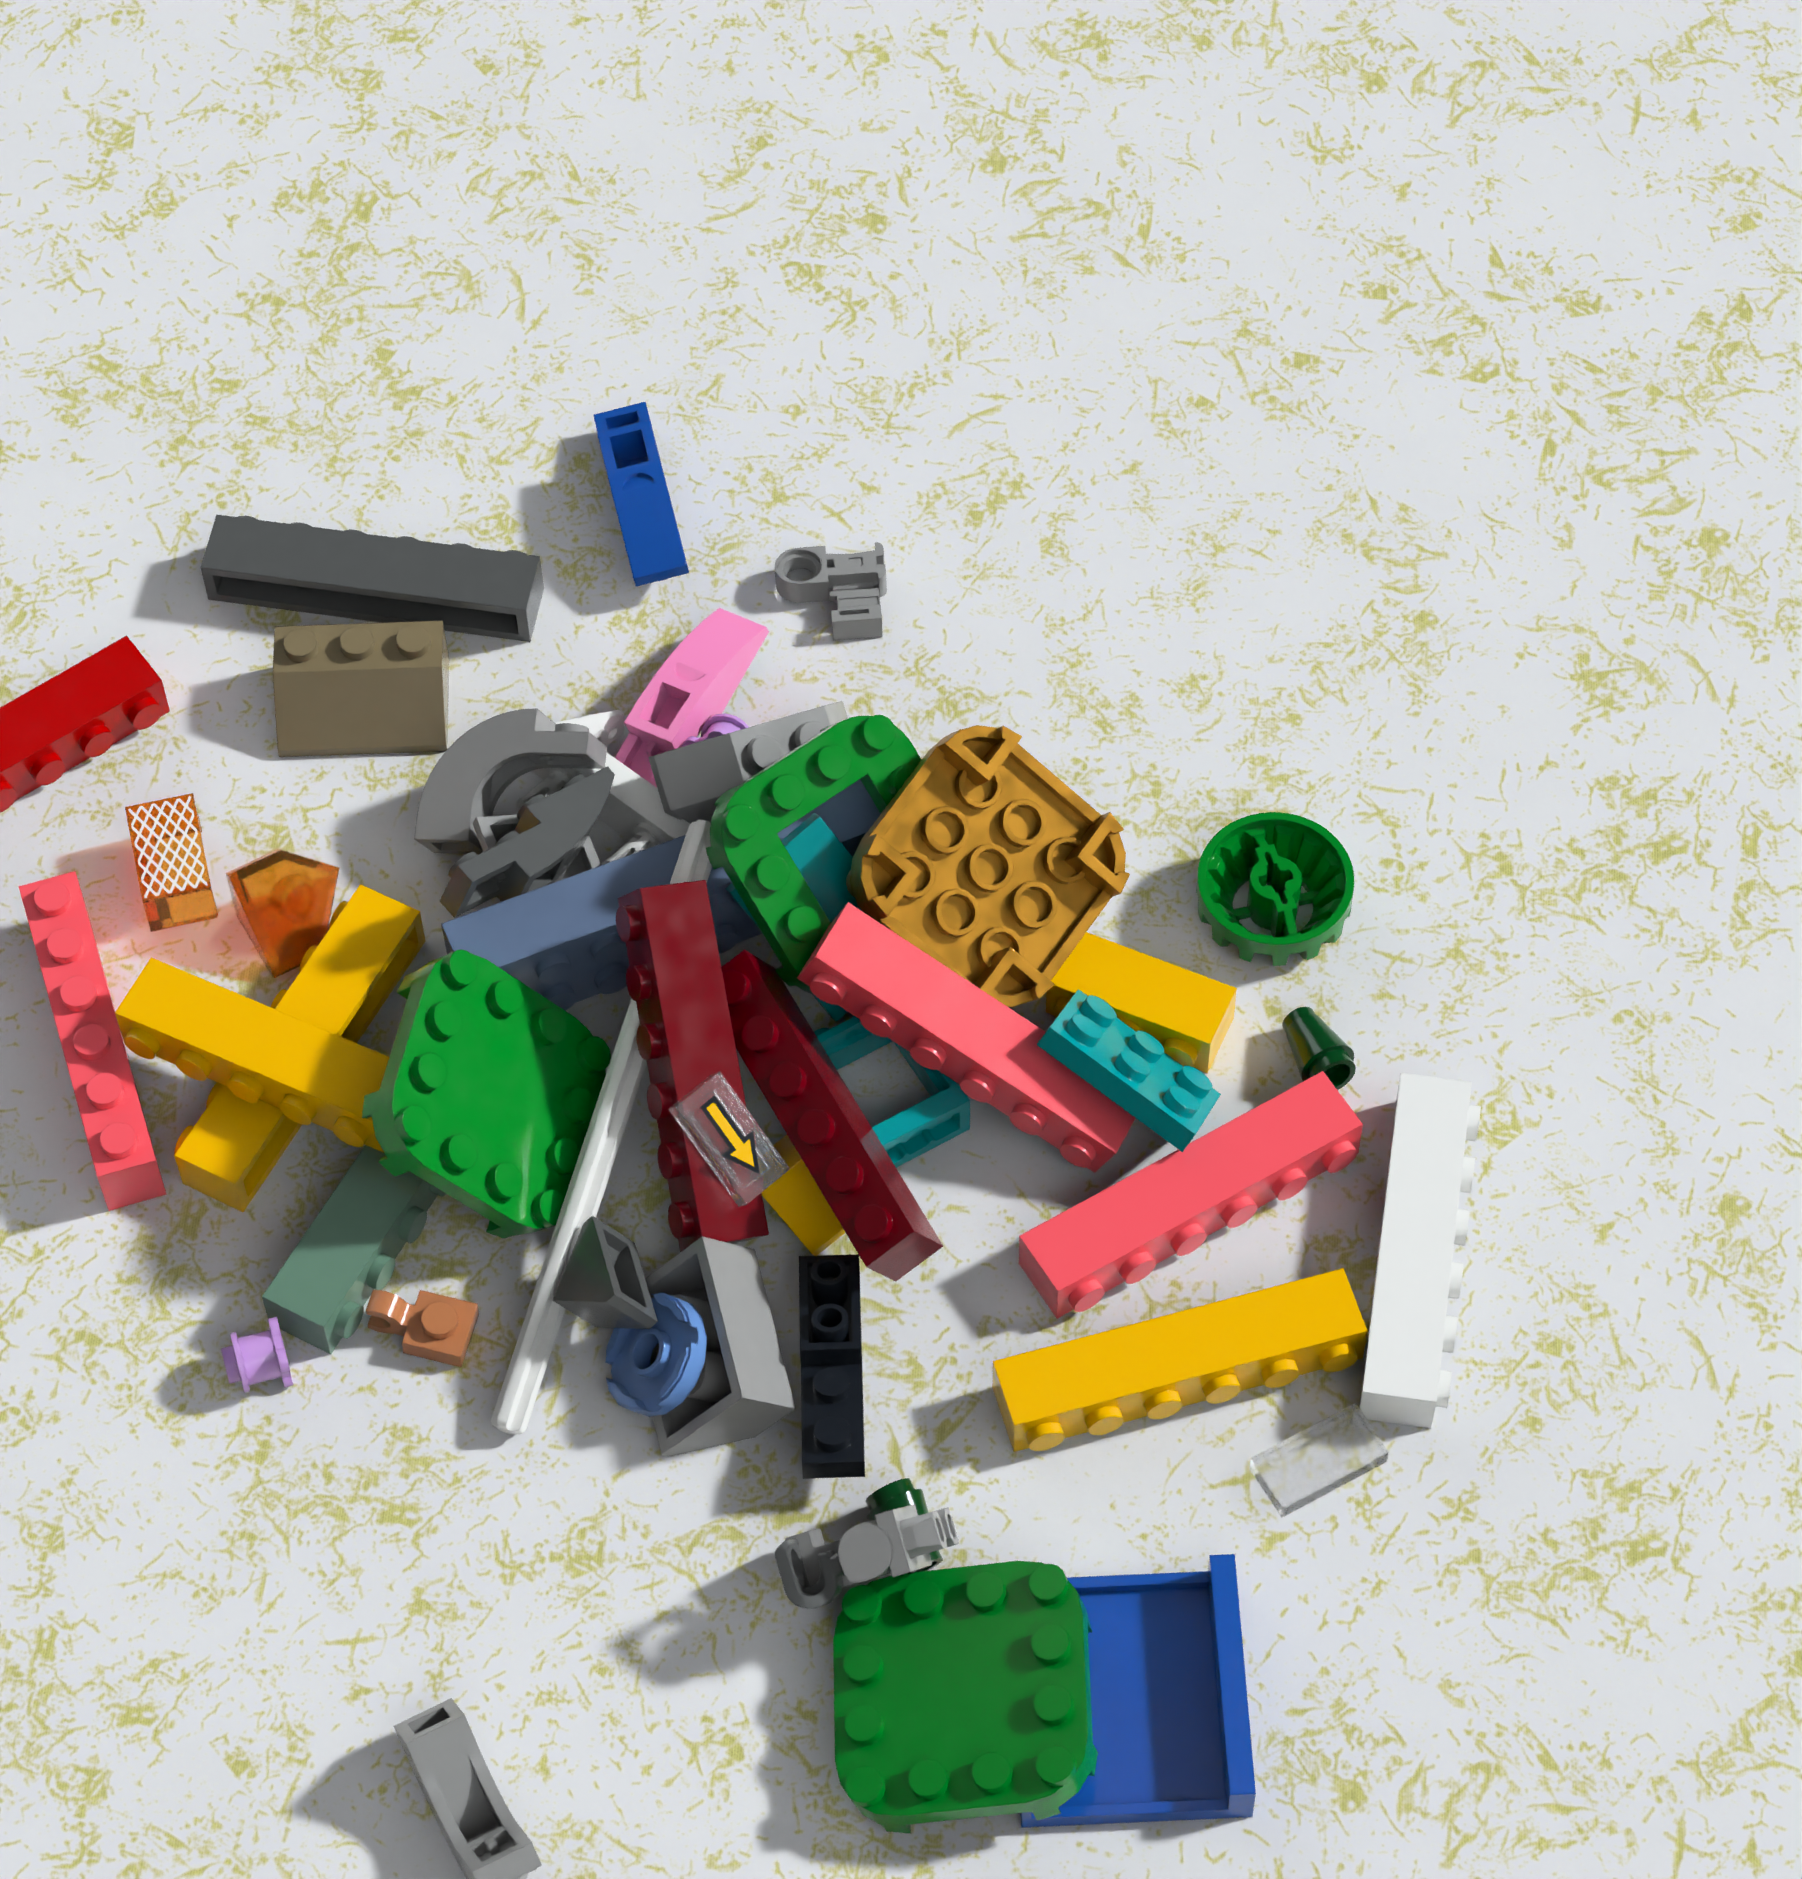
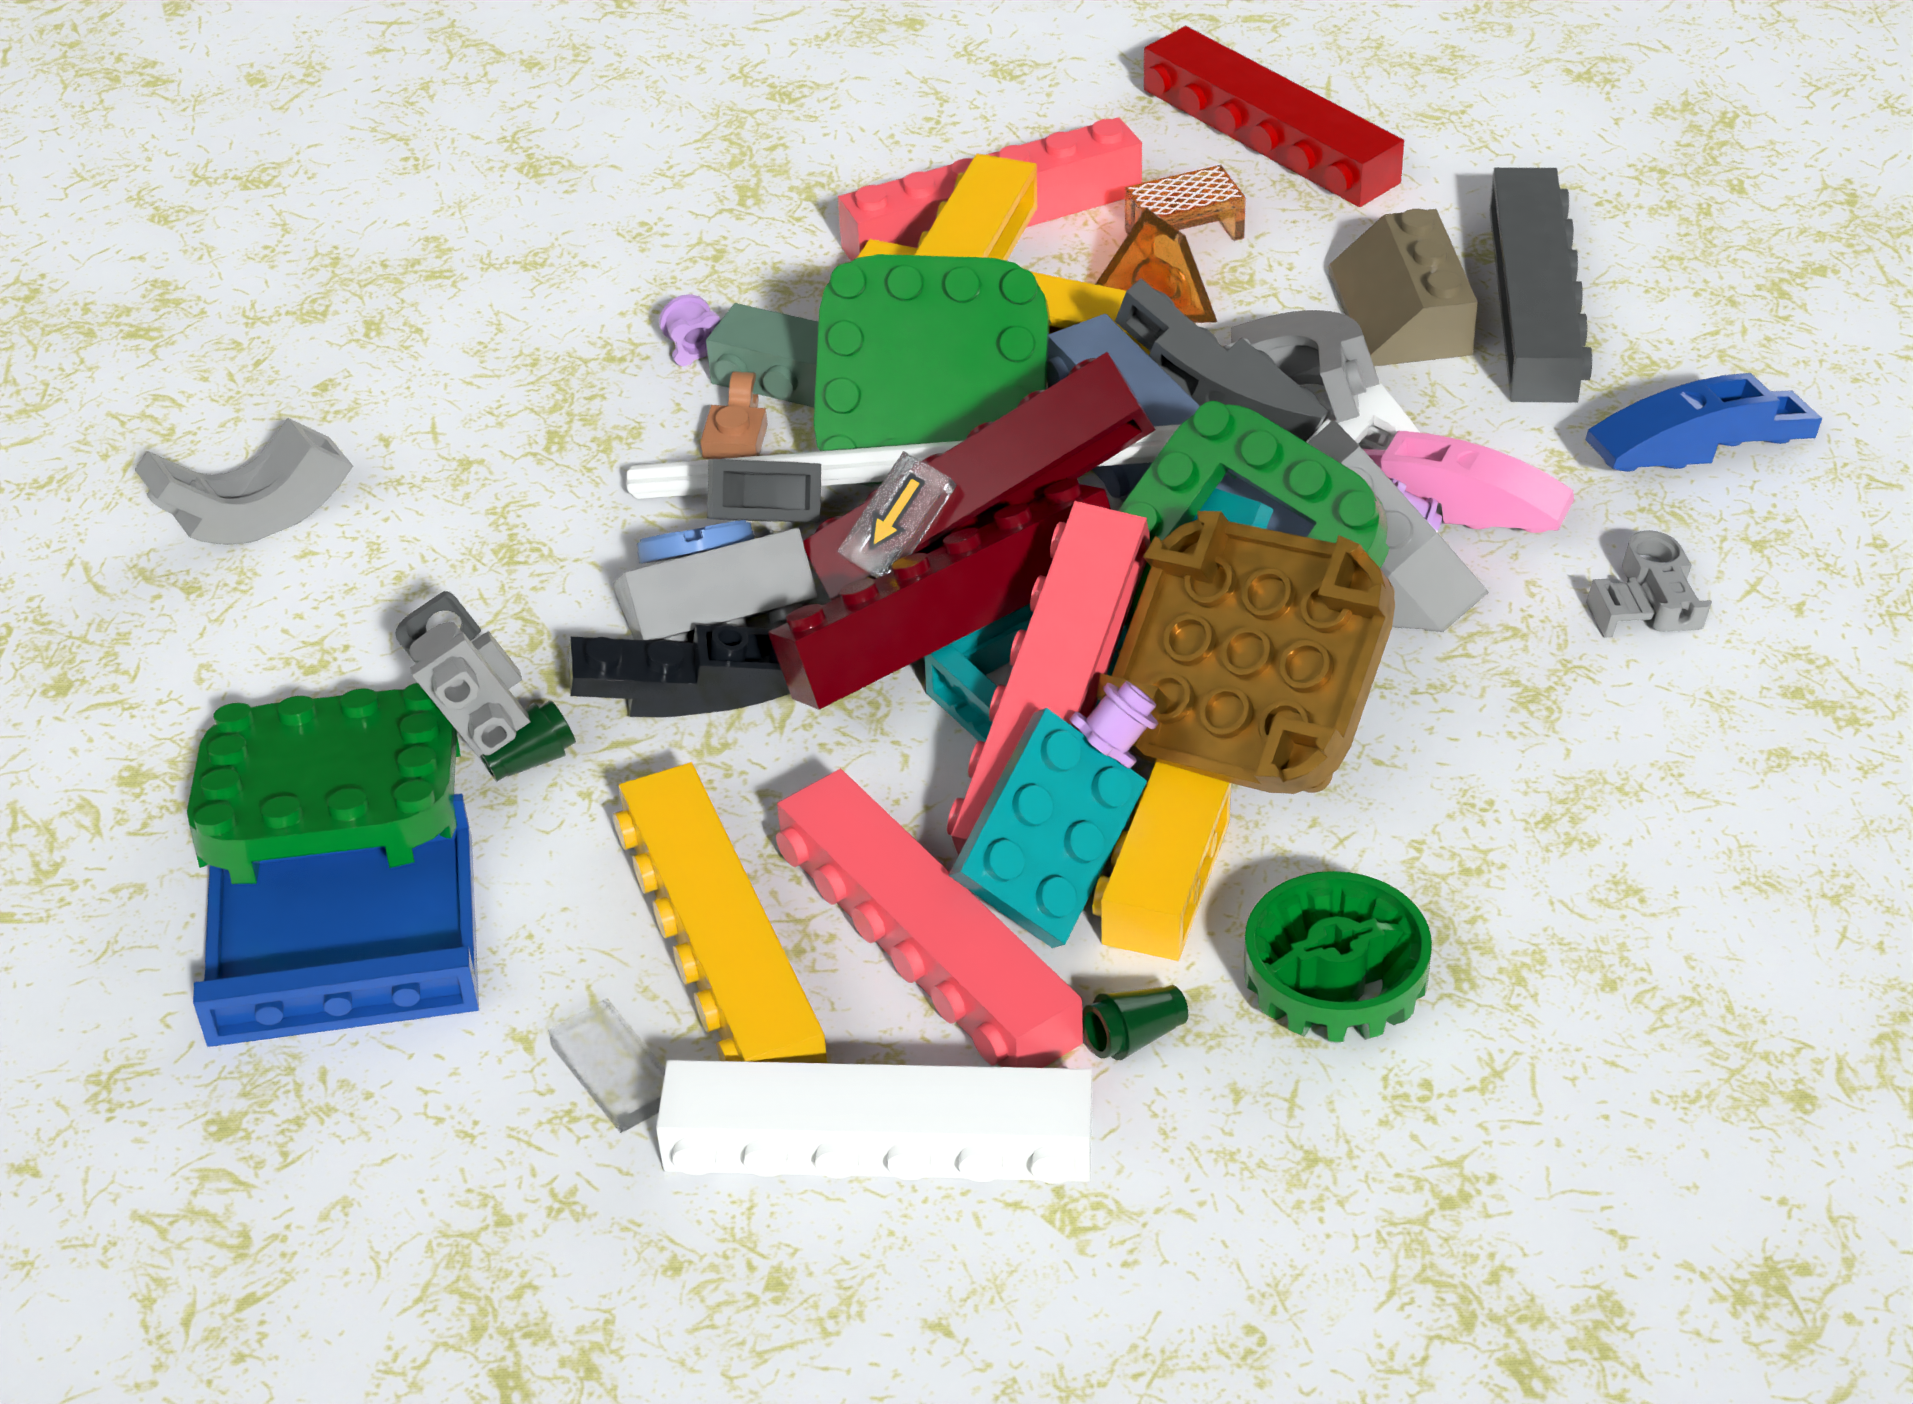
camera: 85 degrees right, 15 degrees down
(1047, 984) = (1118, 721): none -> lavender brick

